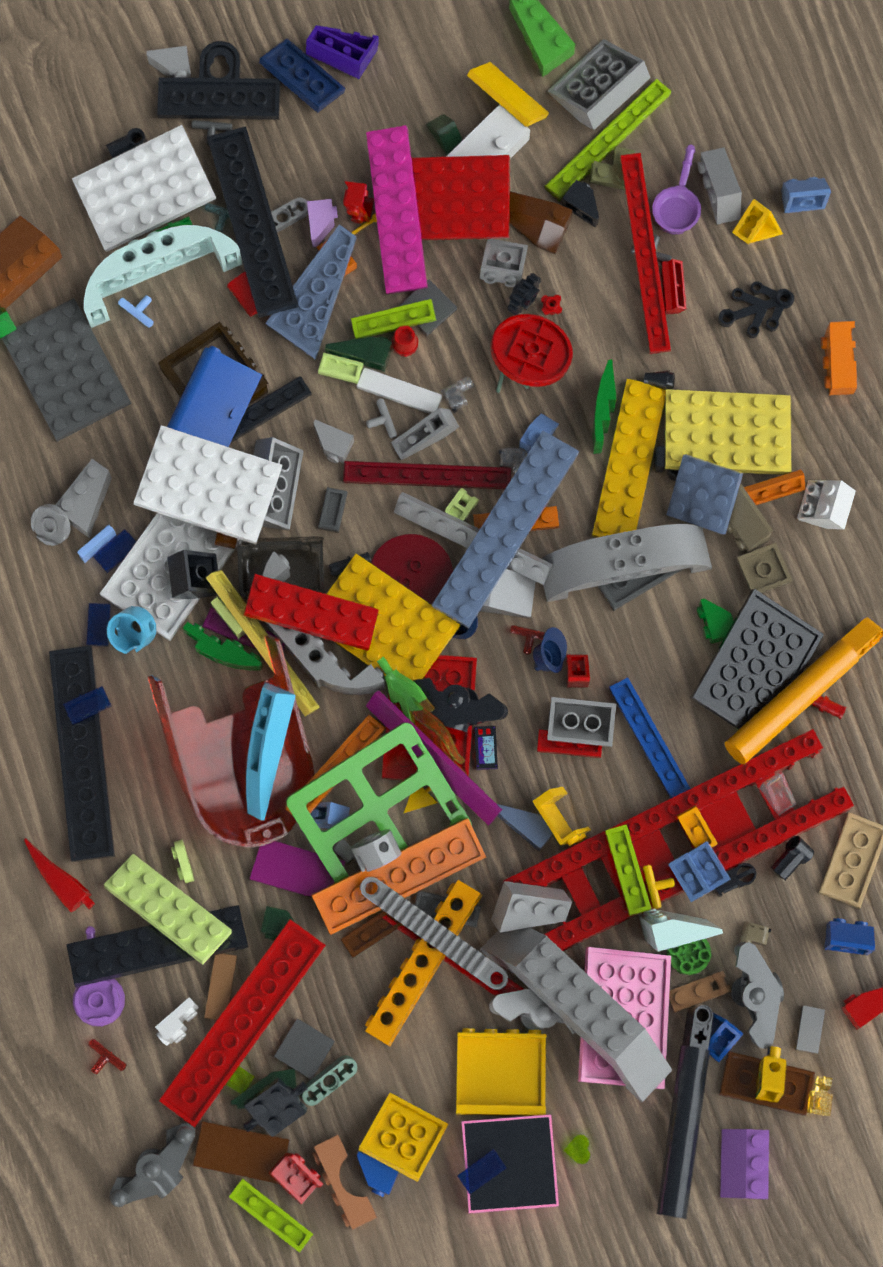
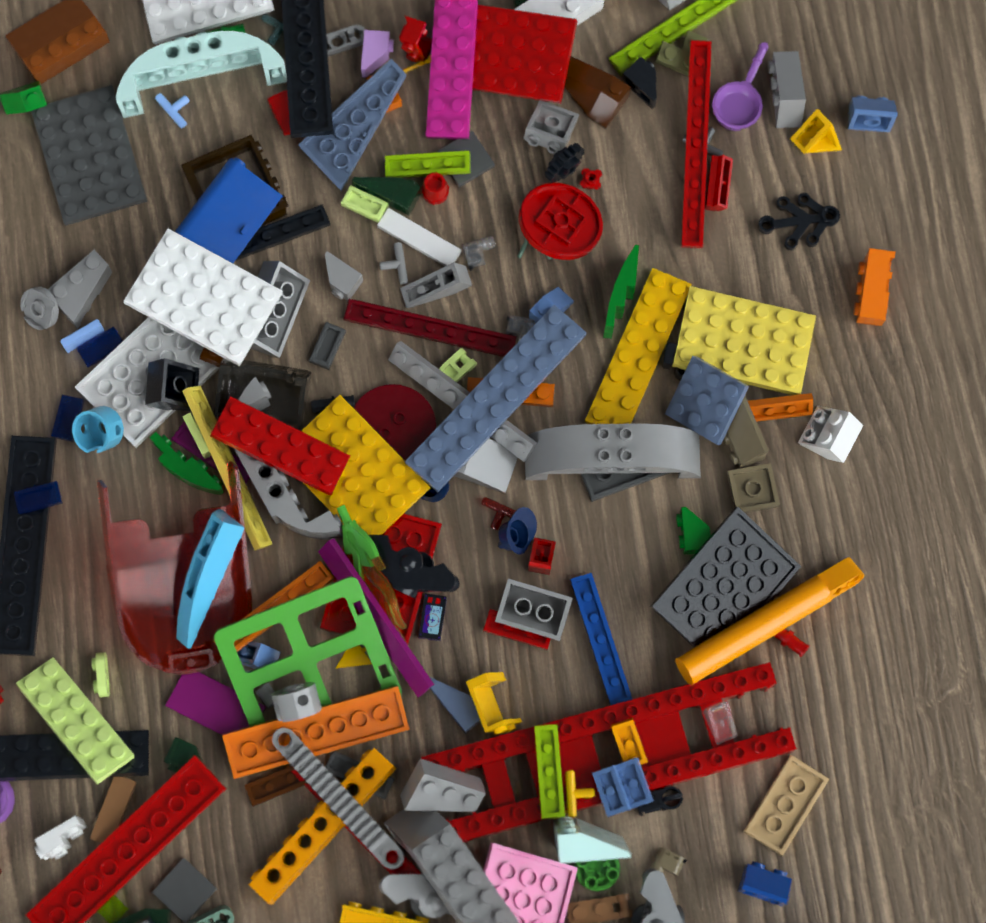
camera: 10 degrees right, 0 degrees up
(661, 379) = (688, 275): black cone -> none
(796, 853) = (727, 787): black piece -> none

